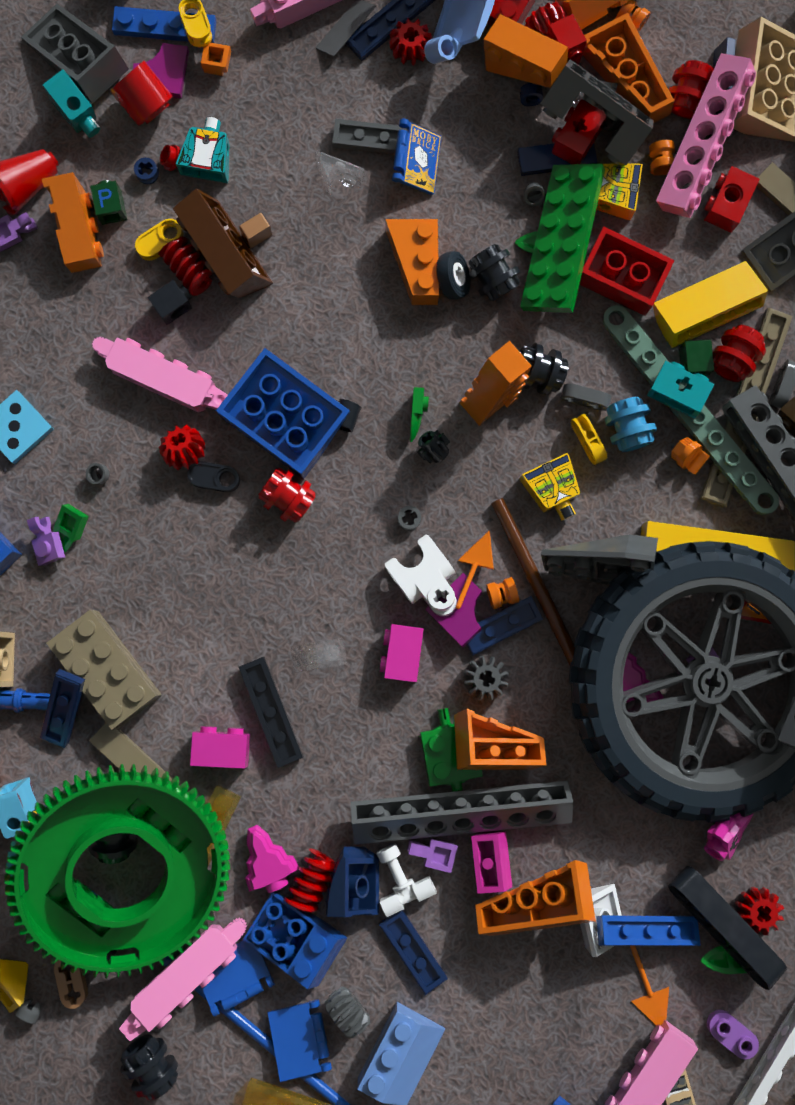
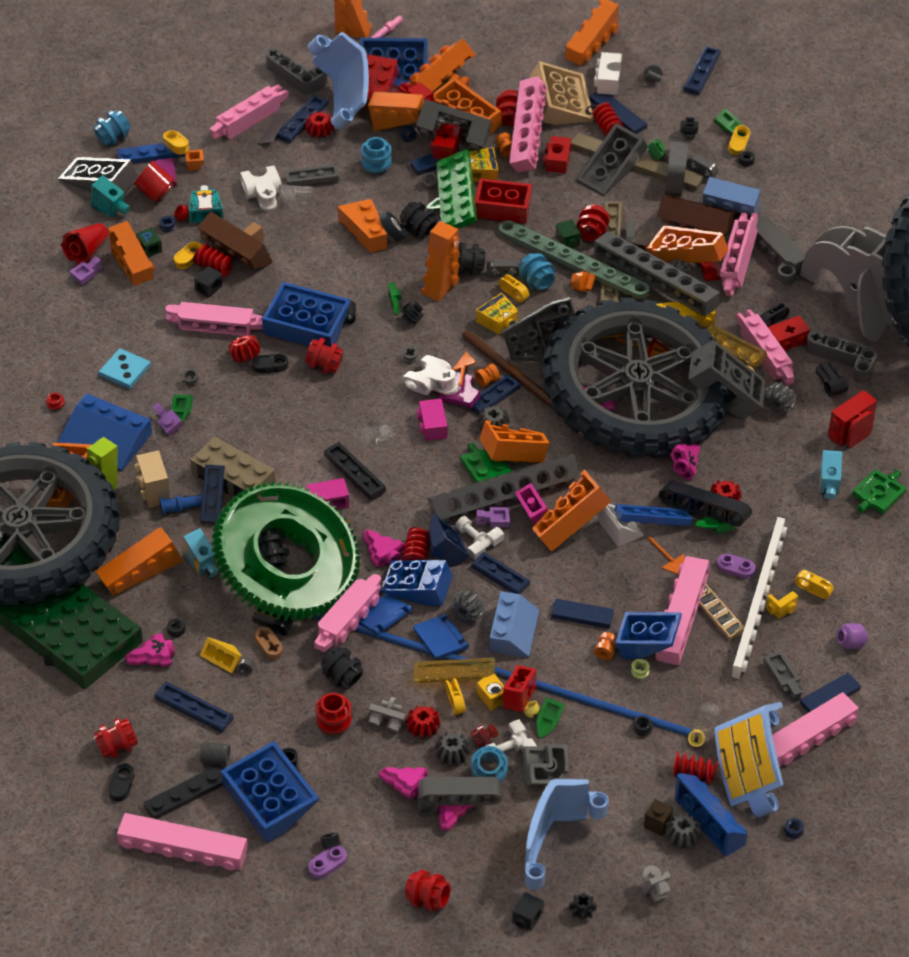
camera: 10 degrees left, 35 degrees down
(296, 141) = (262, 187): none -> white piece
(416, 157) = (345, 177): piece -> none
(474, 118) = (376, 155): none -> dark azure piece
(500, 1054) = (582, 613): none -> dark blue tile
(667, 384) = (561, 244): teal brick -> none
(709, 304) = (564, 206): yellow brick -> none

